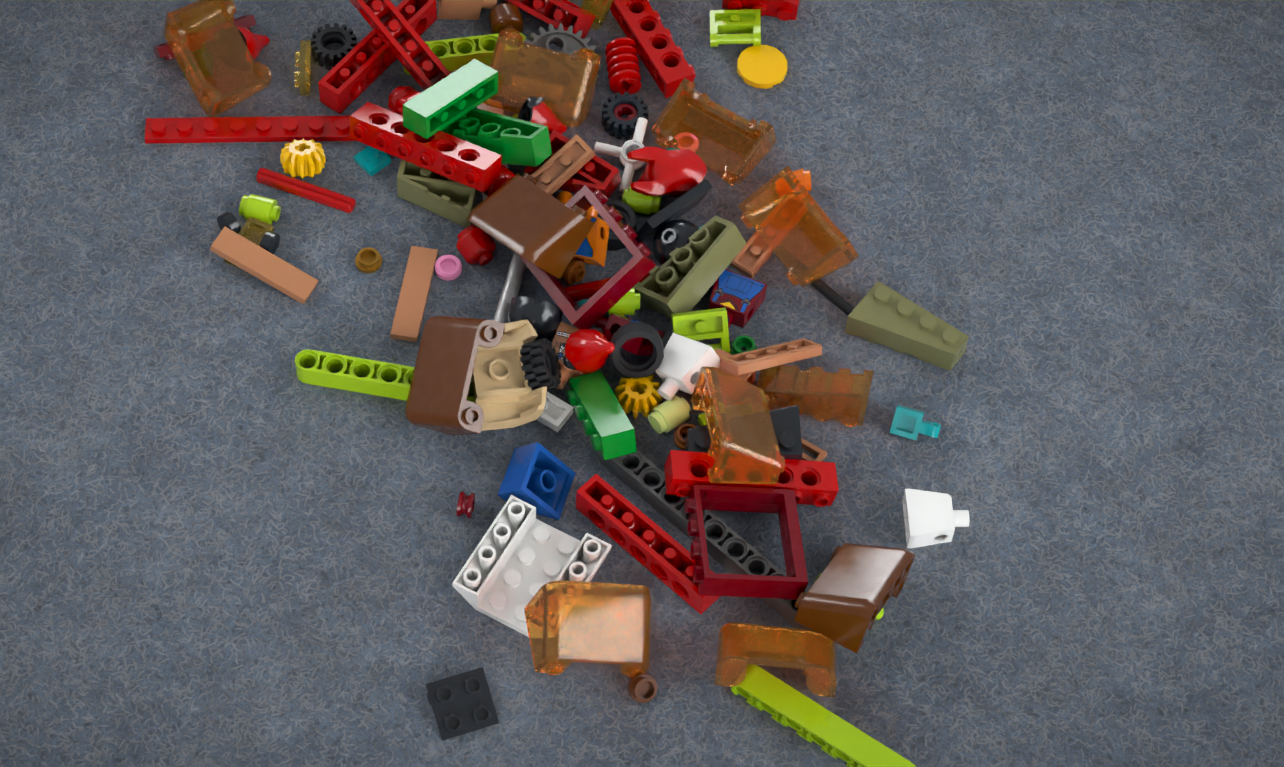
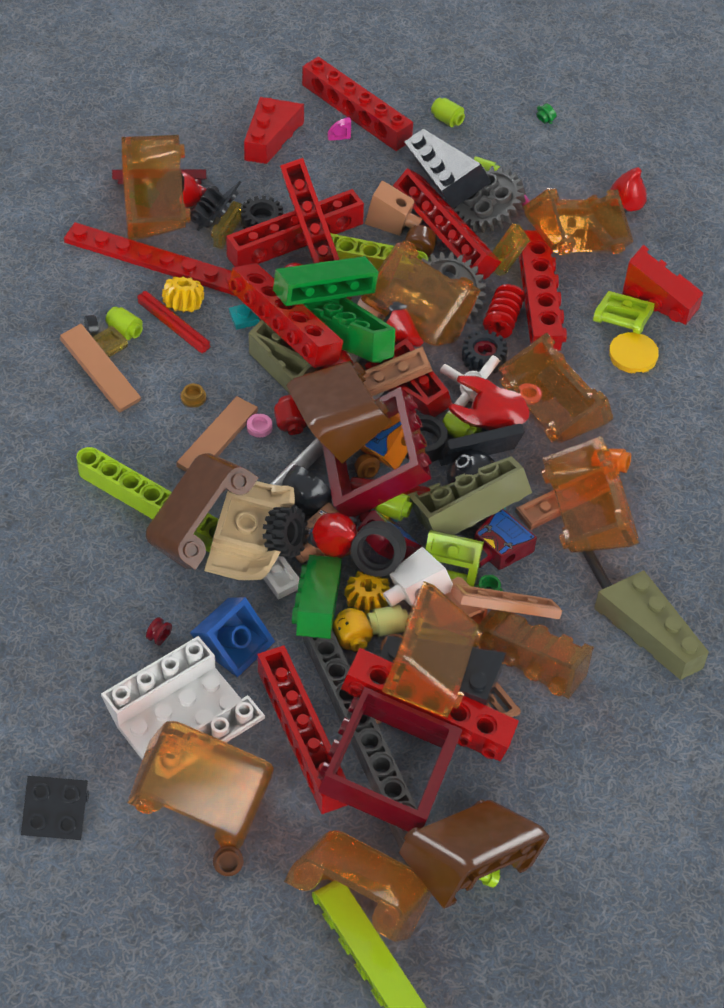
camera: 25 degrees right, 5 degrees down
(270, 241) = (116, 352): black tile -> none
(283, 51) = (211, 205): none -> black hinge
(647, 434) = (352, 628): none -> yellow head
(909, 423) = (614, 713): teal plate -> none
(930, 518) = (590, 809): white torso -> none

